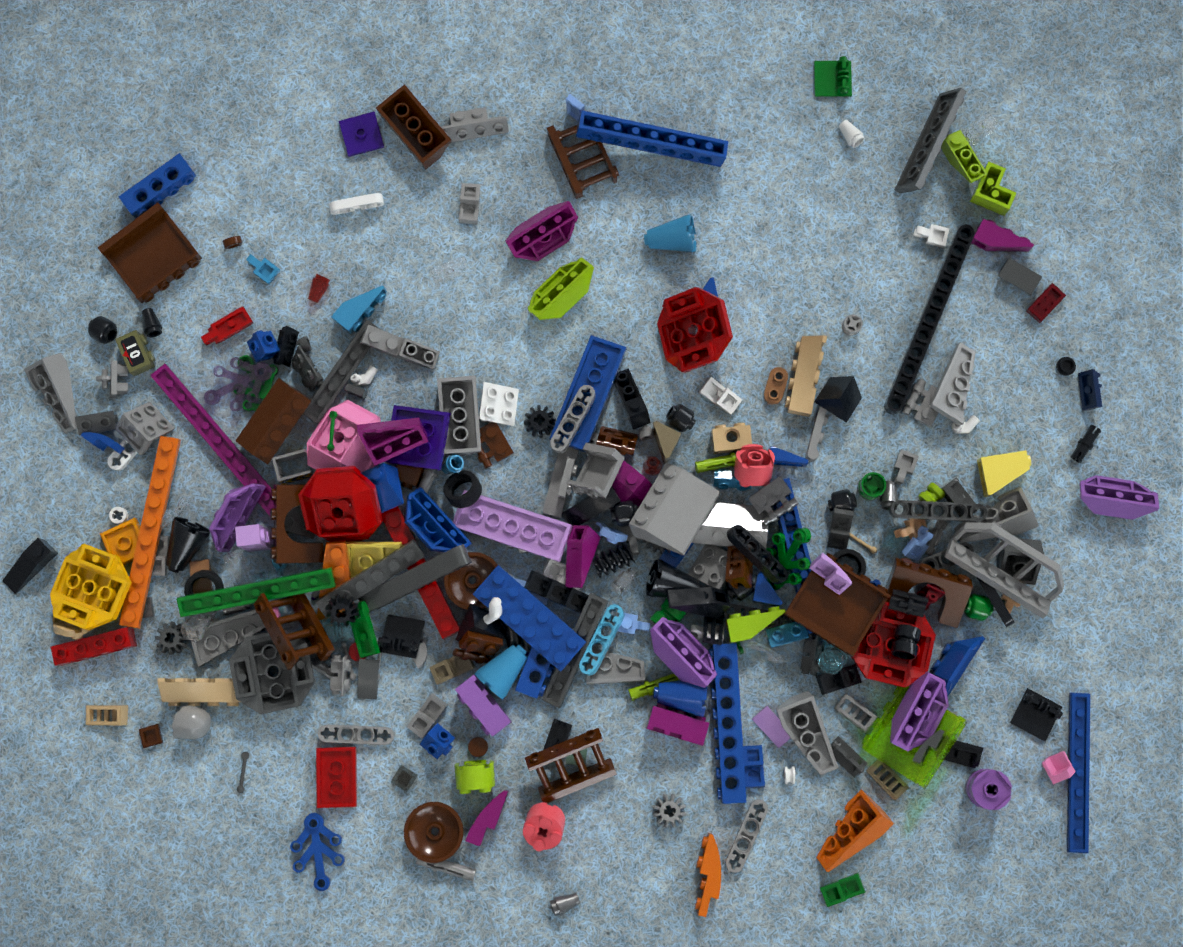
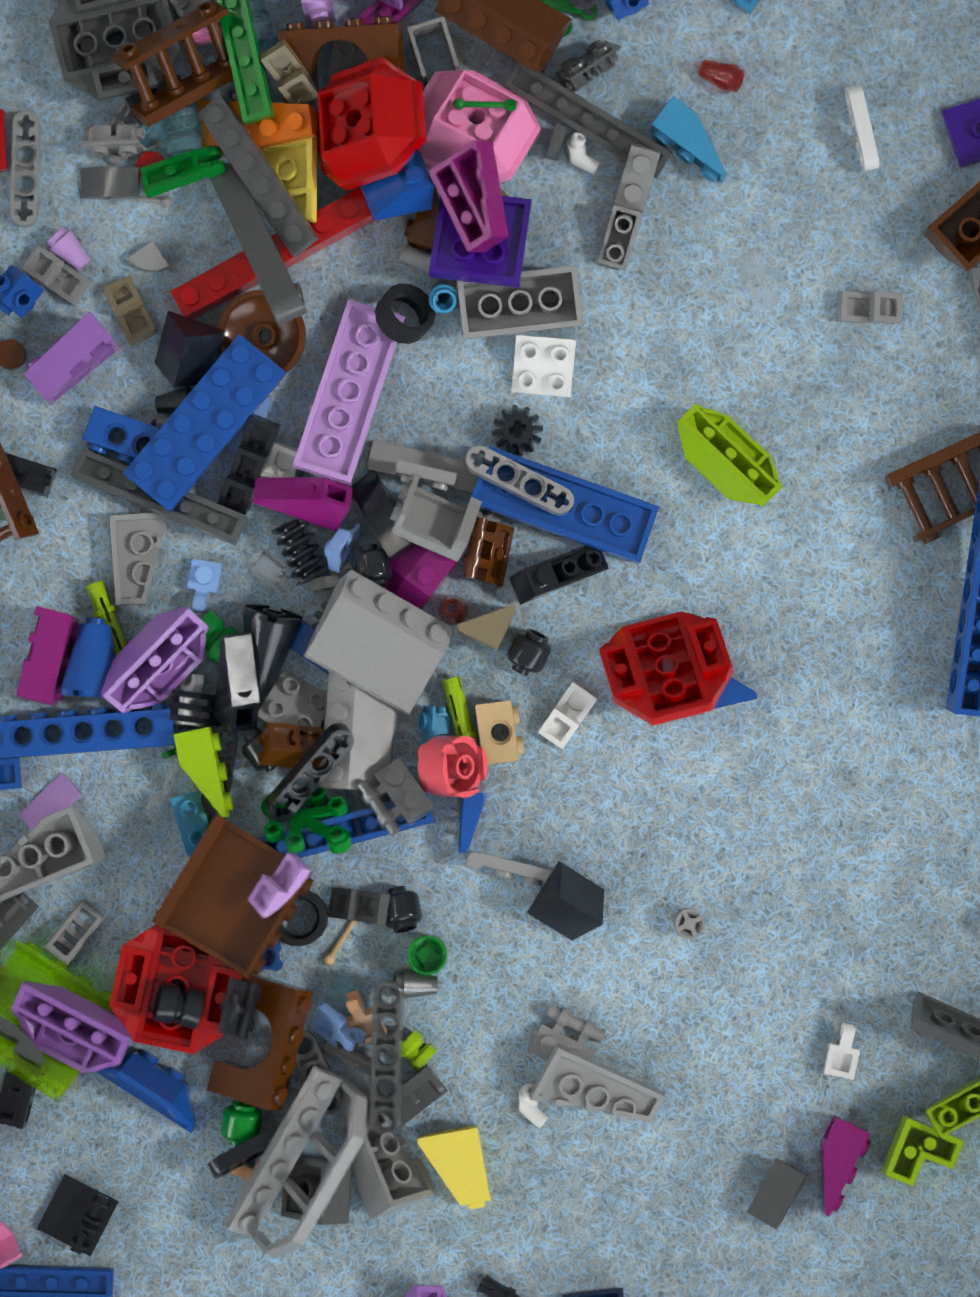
camera: 85 degrees right, 5 degrees up
(287, 339) = (637, 32): black hinge -> none
(304, 556) = (289, 73): none -> dark tan slope
(305, 344) = (630, 58): dark grey hinge -> none
(344, 616) = (206, 145): black gear -> none
(401, 636) = (175, 230): black hinge -> none
(410, 706) = (69, 249): none -> lavender cone
(432, 524) = (345, 269): blue wedge -> none
(479, 643) = (158, 346): reddish brown plate -> none
(495, 610) = (212, 368): white arm -> none
(496, 442) = (483, 364): reddish brown plate -> none
(503, 670) = (123, 385): dark azure cone -> none
(543, 232) = (823, 423): magenta wedge -> none
(604, 640) = (173, 541): medium azure beam -> none
(646, 433) = (504, 597): light grey hinge -> none
(673, 235) = (825, 634): dark azure cone -> none
(764, 592) = (254, 788): blue slope -> none
(775, 385) = (587, 802): medium nougat plate -> none
(805, 375) = (602, 848): tan wedge -> none
(815, 648) = (147, 863): dark grey hinge -> none
(832, 659) = (149, 891): clear light blue wheel -> none
(844, 678) = (125, 906): black slope -> none
(904, 464) = (466, 1009): light grey plate -> none
(929, 310) = (714, 1057): black beam -> none
(932, 592) = (255, 1046): dark red hinge -> none
(1046, 303) = (736, 1237): dark red plate -> none
(1066, 366) = (633, 1268): black plate -> none

